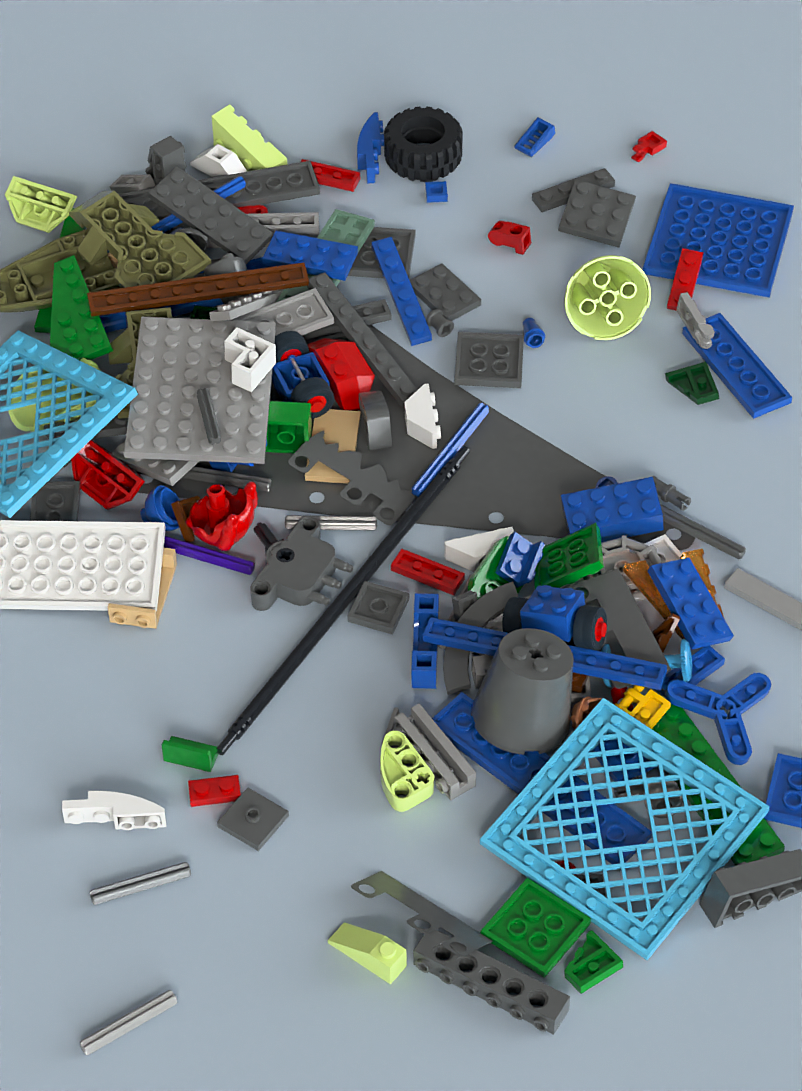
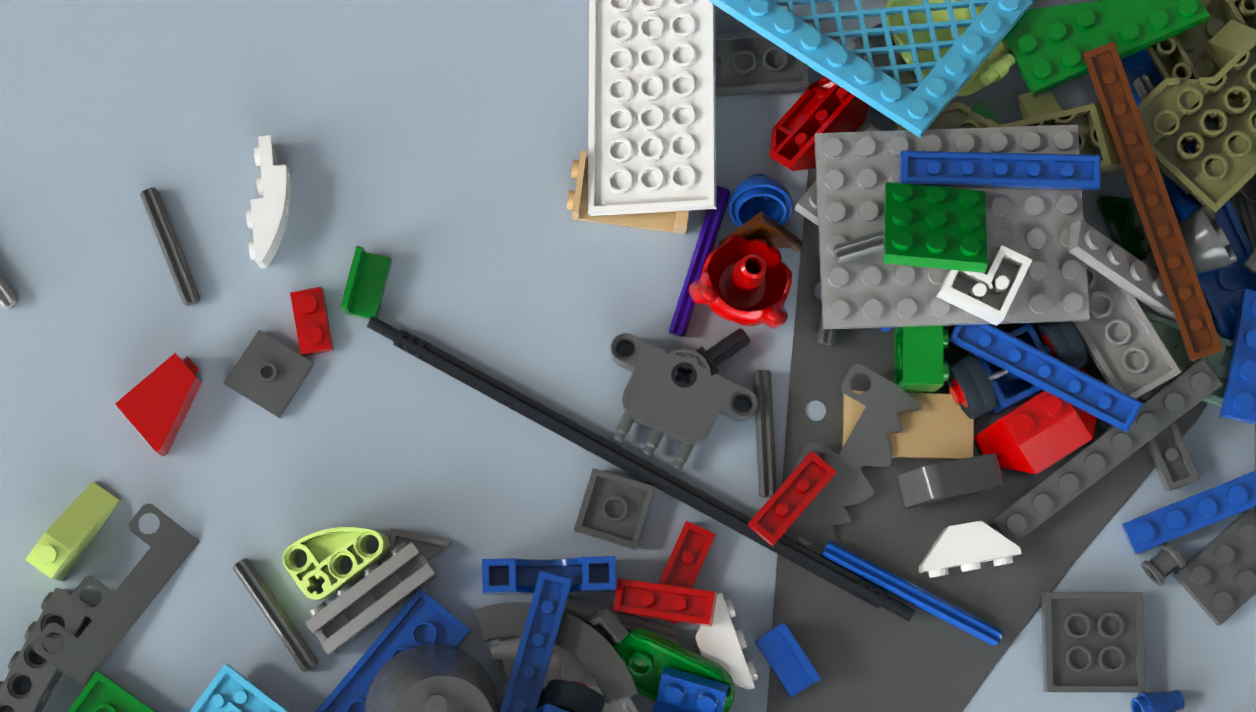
camera: 85 degrees right, 30 degrees up
(167, 354) = (1000, 170): none -> blue tile
(205, 379) = (935, 227): none -> green plate
(270, 886) = (162, 401): none -> red slope
(309, 350) = (1048, 373): none -> blue tile
(380, 500) = (792, 498): none -> red plate
(442, 818) = (275, 615): none -> dark grey axle
(450, 569) = (665, 602): none -> red plate
(491, 512) = (787, 659): none -> blue panel

